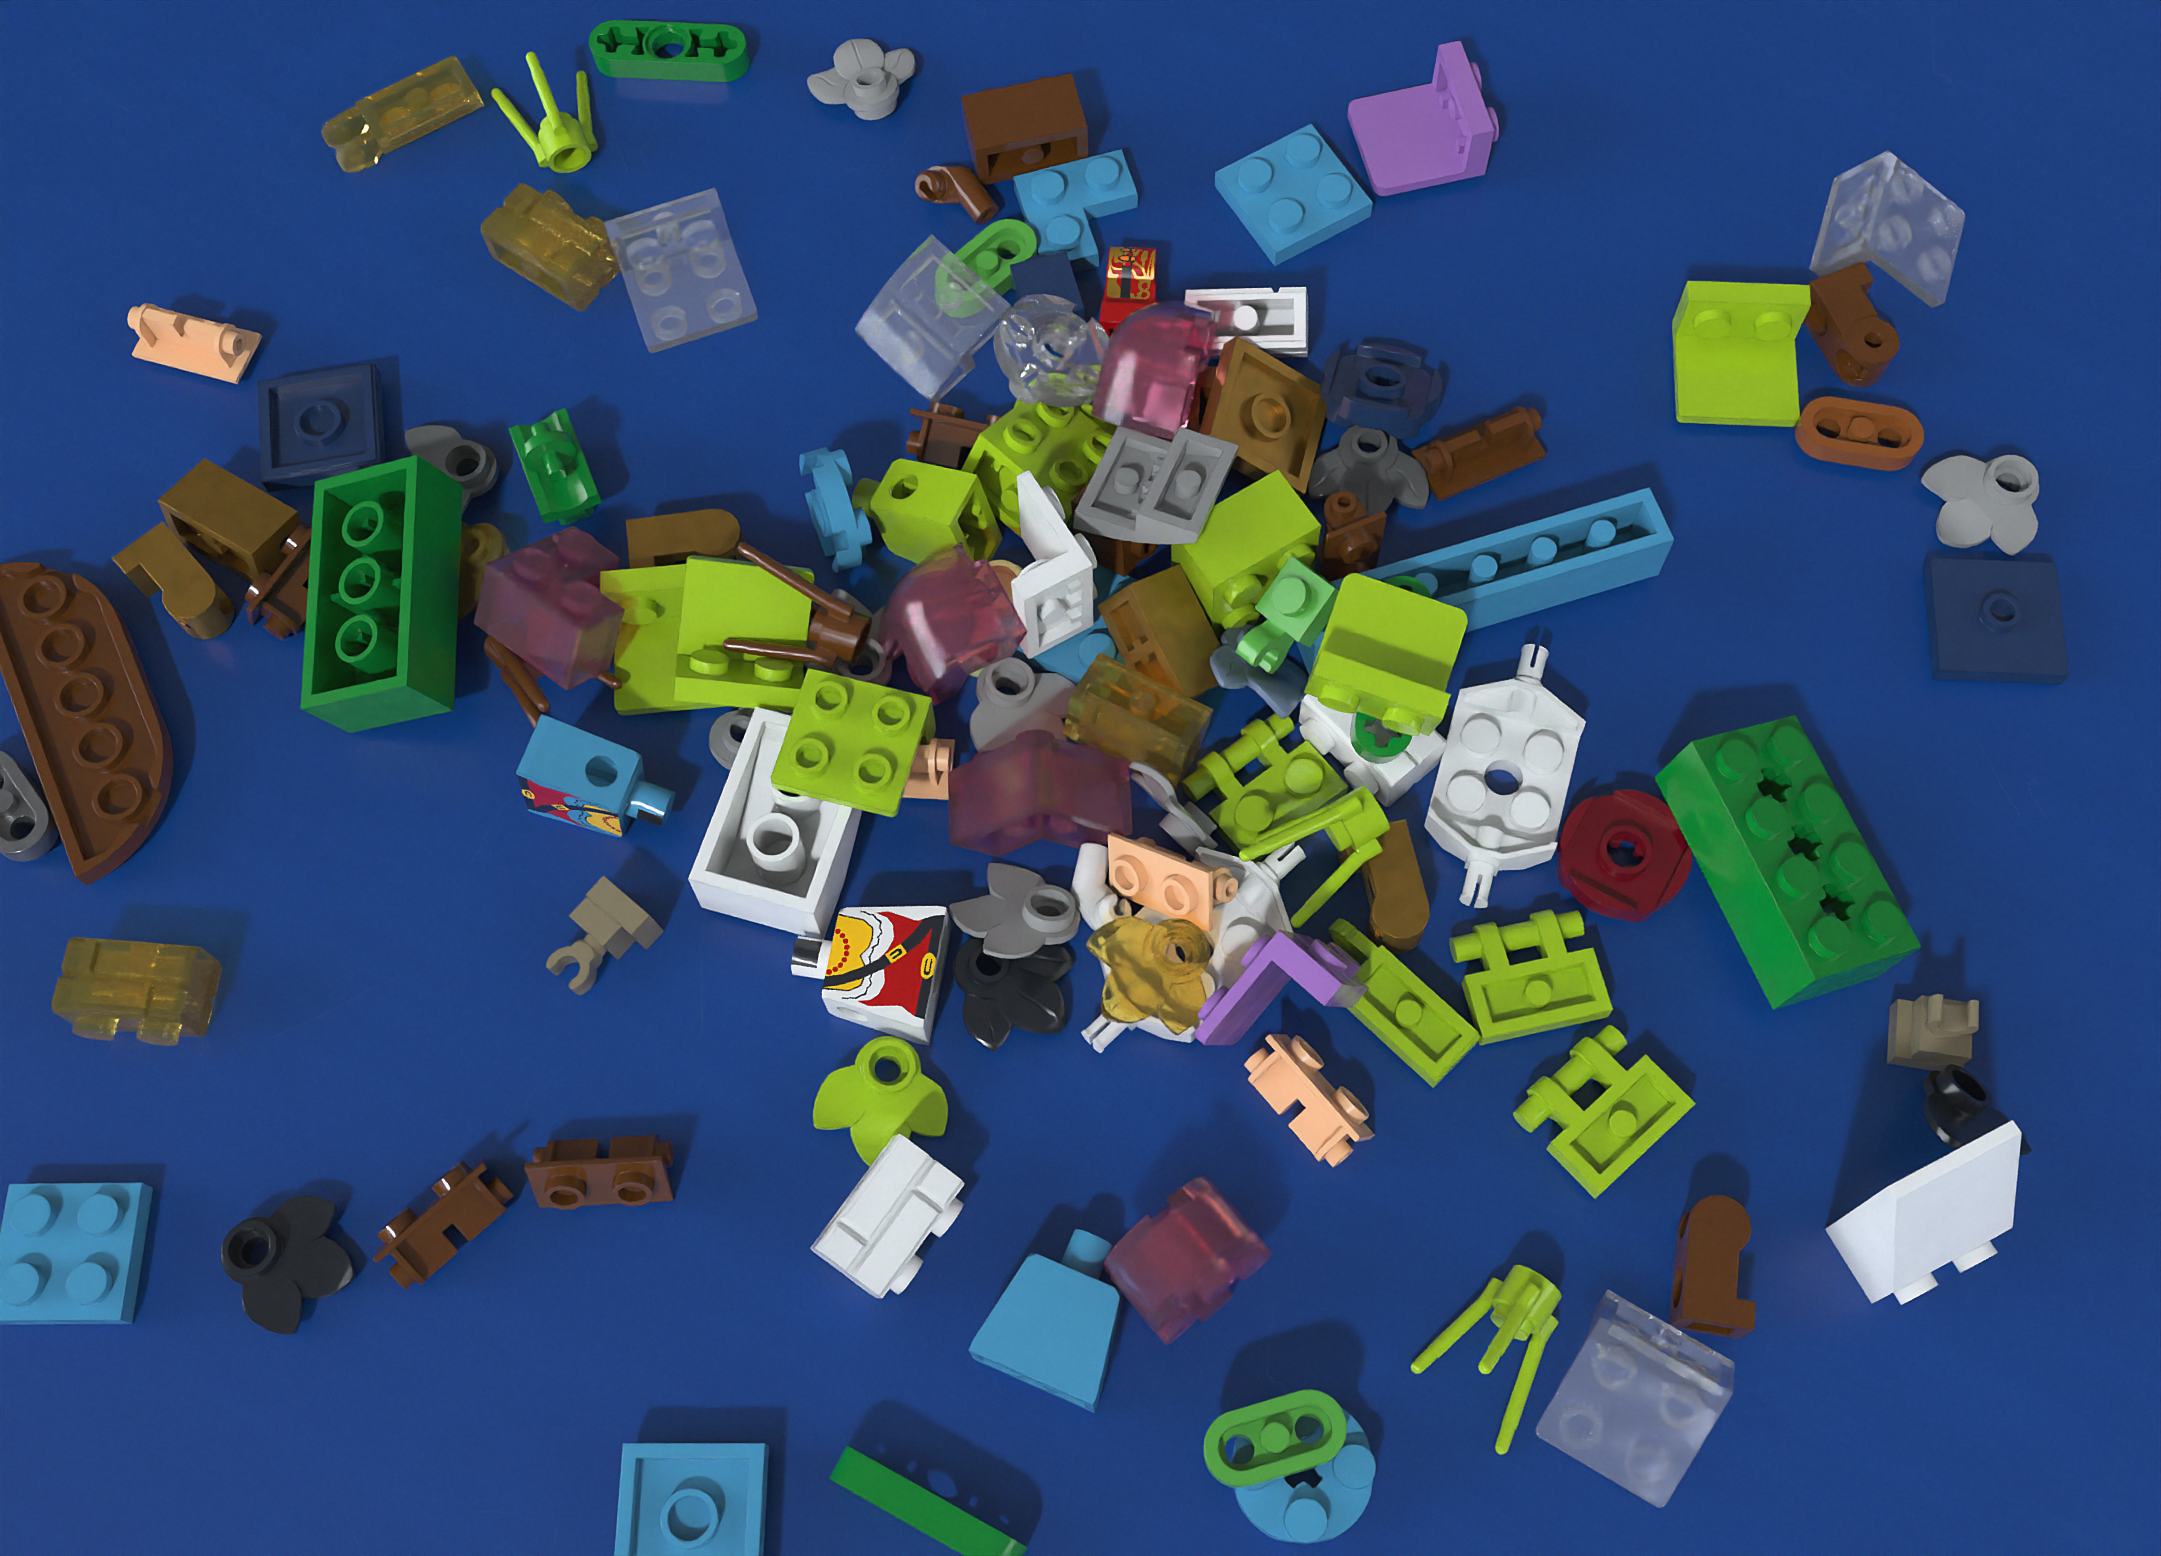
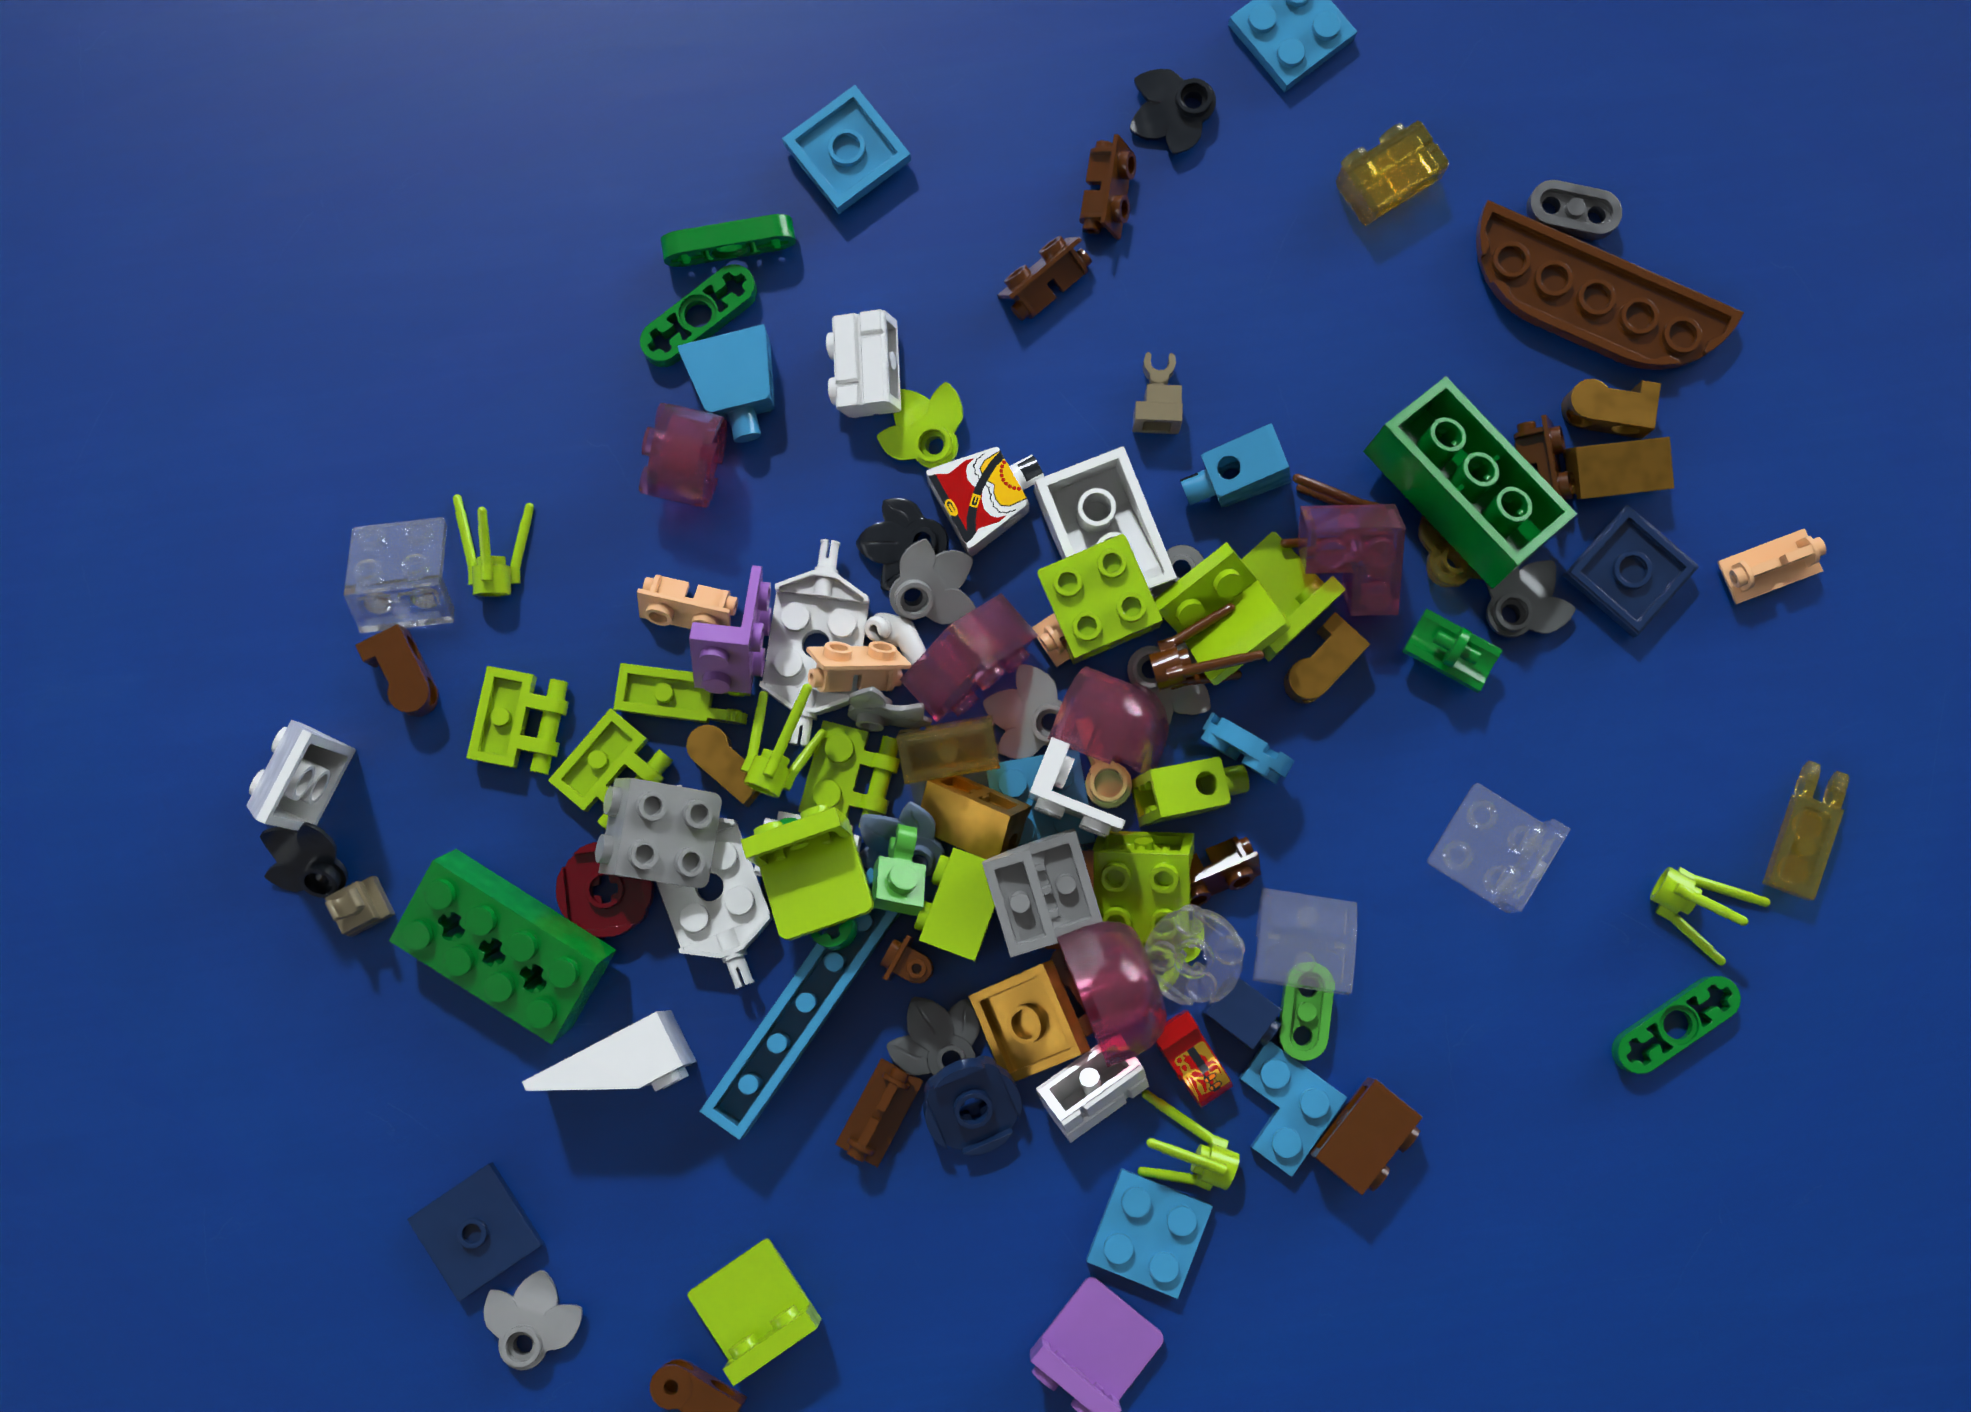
camera: 140 degrees right, 15 degrees up
(551, 245) = (1607, 805): clear yellow brick -> none
(864, 78) = (1527, 1107): light grey plate -> none
(956, 186) = (1379, 1062): reddish brown arm -> none
(984, 1464) = (699, 296): none -> green beam
(1143, 975) = (822, 592): clear yellow plate -> none
(1189, 206) = (1211, 1163): none -> lime plant
(1272, 1435) = (567, 398): bright green plate -> none
(1305, 1512) = (535, 387): dark azure plate -> none
(1529, 849) = (658, 832): none -> light grey bracket
(1734, 654) = (632, 1058): none -> white slope
(1856, 433) = (643, 1312): dark orange plate -> none

